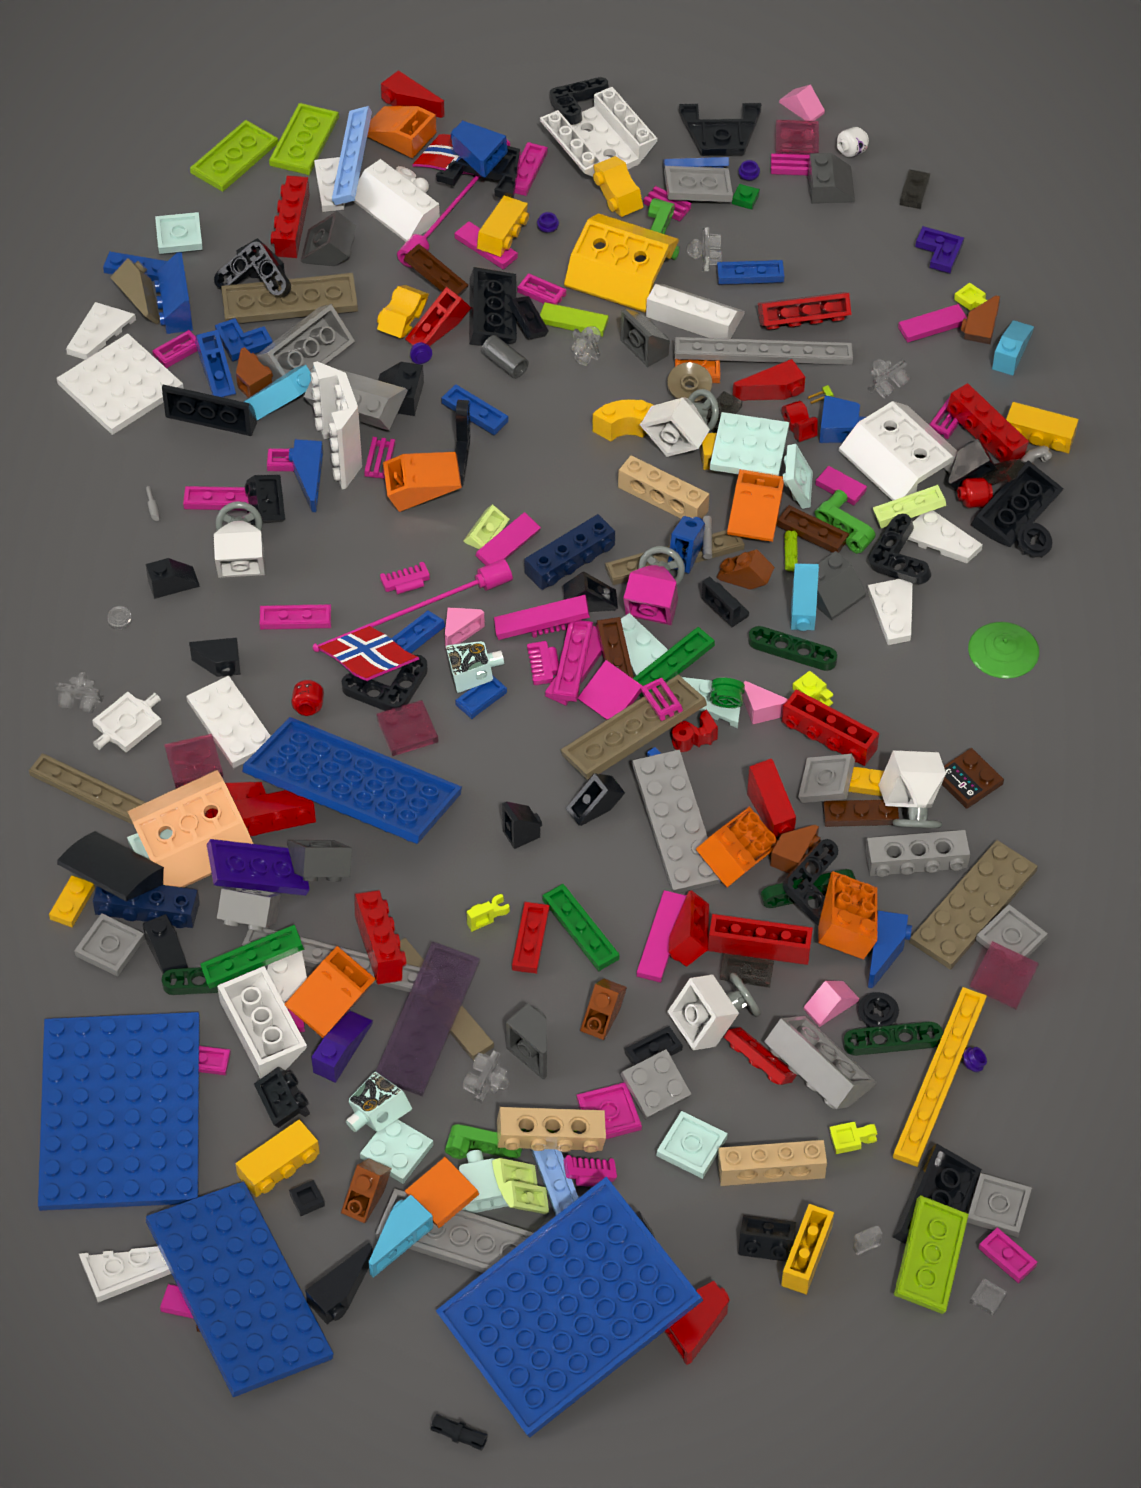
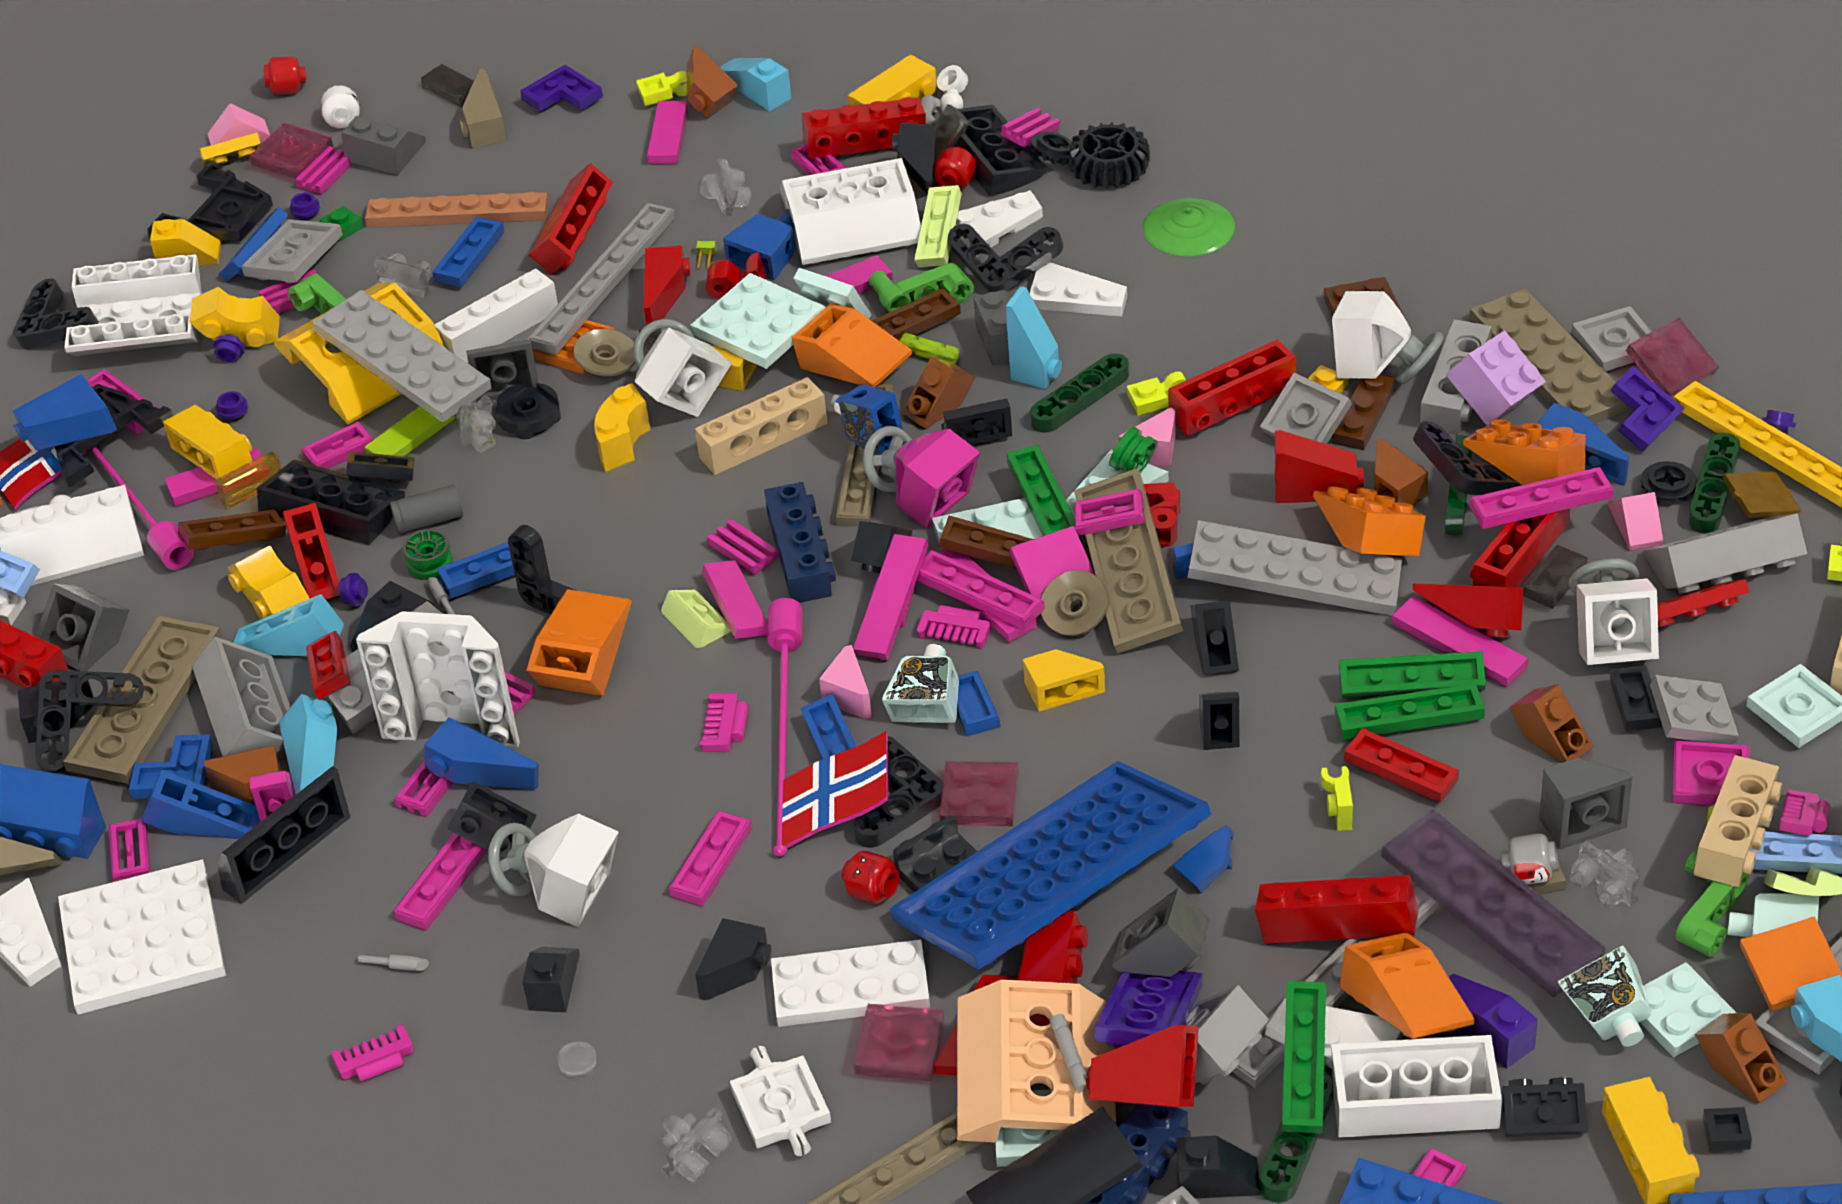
camera: 60 degrees left, 10 degrees down
(81, 528) = (377, 1060): none -> dark pink piece
(190, 879) = (1149, 1070): none -> red slope
(192, 834) = (1069, 1051): none -> light grey wheel
(233, 388) = (271, 792): none -> dark pink slope
(343, 722) = (931, 853): none -> black bracket
(348, 363) = (327, 664): none -> red tile
(371, 340) = (291, 629): none -> medium azure slope
(404, 861) = (1207, 859): none -> blue slope
(438, 400) = (440, 594): none -> light grey piece
(469, 374) = (426, 552): none -> green wheel
(470, 1028) = (1531, 858): none -> light grey head
(484, 259) = (245, 480): none -> clear yellow tile
(515, 730) = (1061, 678): none -> yellow slope
(554, 512) = (747, 544): none -> dark pink tile
(585, 714) = (1066, 592): none -> dark tan dish
(596, 196) = (228, 348): none -> dark purple plate
(604, 279) = (402, 355): none -> light grey plate
(612, 918) = (1410, 674): none -> green plate
(621, 377) = (542, 411): none -> black plate
(675, 128) = (183, 238): none -> yellow slope
(772, 103) = (243, 146): none -> yellow plate
(792, 248) = (456, 209): none -> nougat plate
(792, 931) = (1541, 498): none -> dark pink tile
(866, 98) = (284, 75): none -> red head
(891, 216) = (482, 114): none -> dark tan slope
(891, 1069) = (1761, 494): none -> pearl gold piece
(910, 871) = (1495, 377): none -> lavender brick
(944, 979) = (1651, 406): none -> dark purple plate
(1031, 567) = (1109, 155): none -> black gear
(1049, 515) = (1025, 125): none -> dark pink tile
(1072, 456) = (952, 82): none -> white plate

